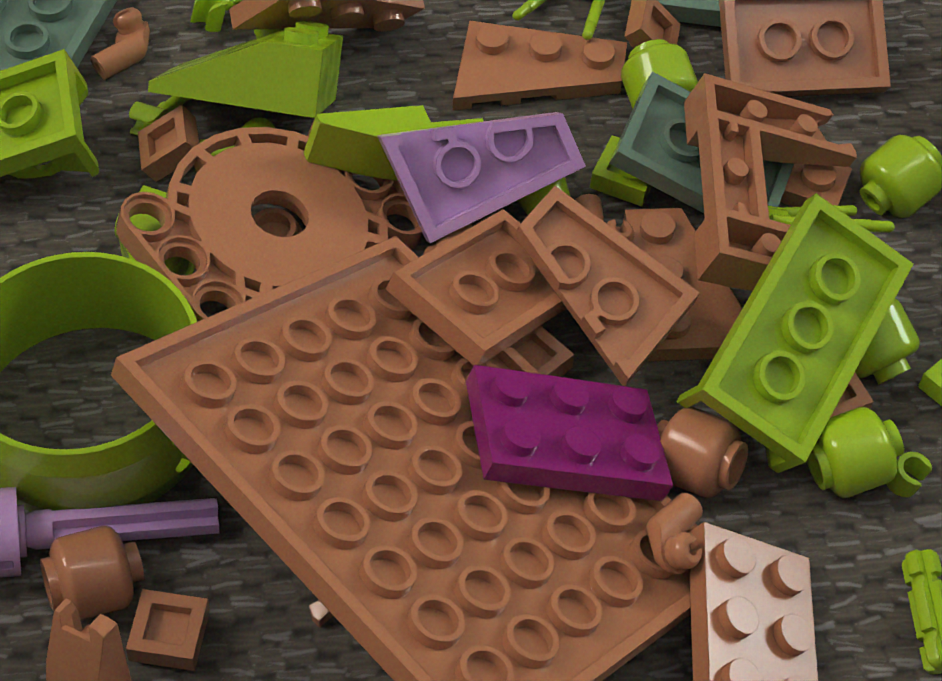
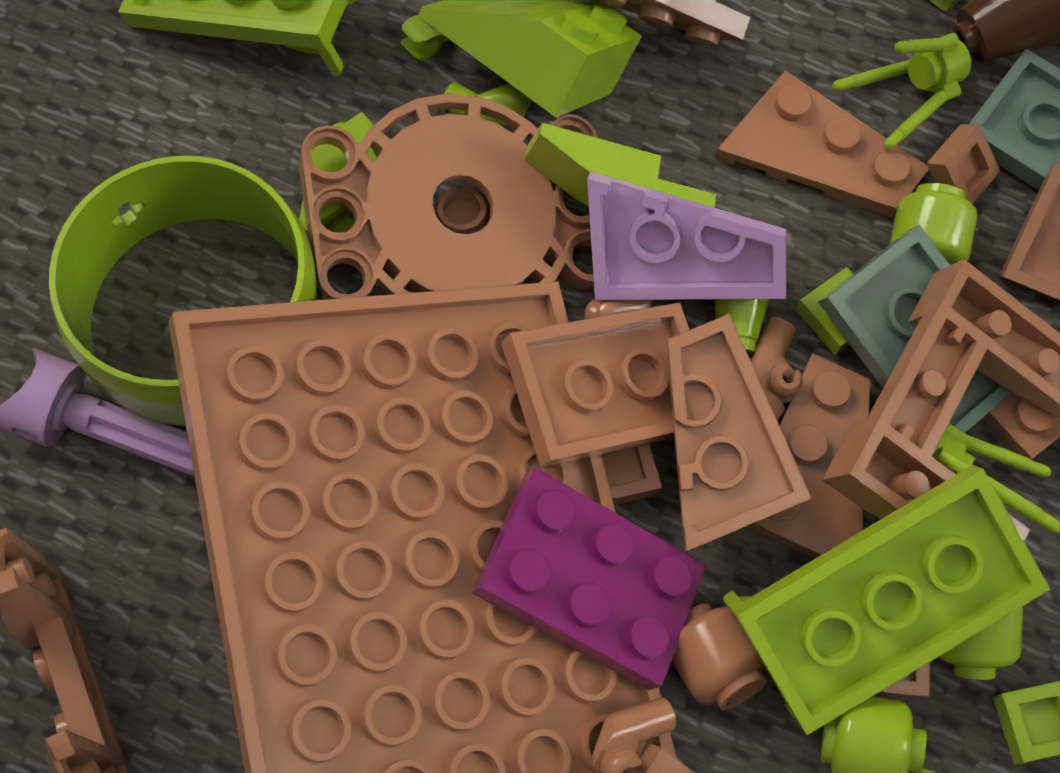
camera: 30 degrees right, 15 degrees up
(92, 571) = (100, 479): nougat head -> none
(167, 142) = (421, 72): nougat plate -> none
(168, 629) = (138, 567): nougat plate -> none

